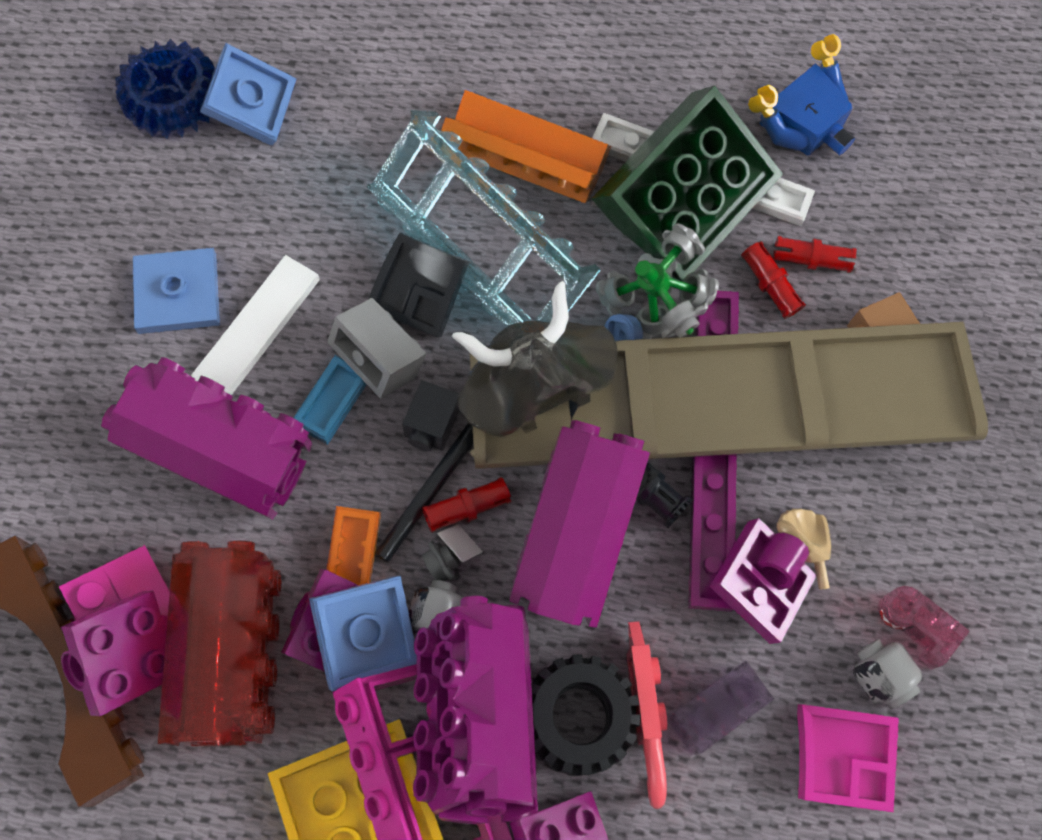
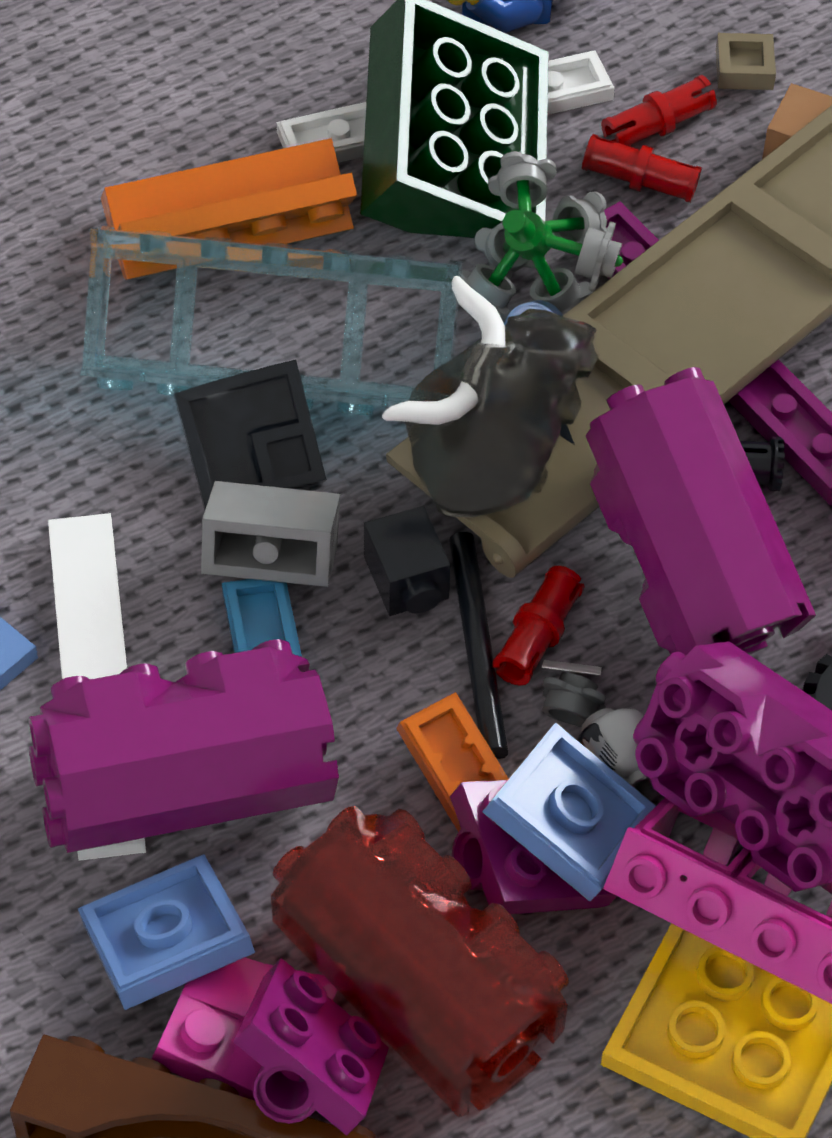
camera: 35 degrees left, 15 degrees down
(128, 525) = (165, 931): none -> medium blue plate
(893, 257) = (745, 61): none -> dark tan plate

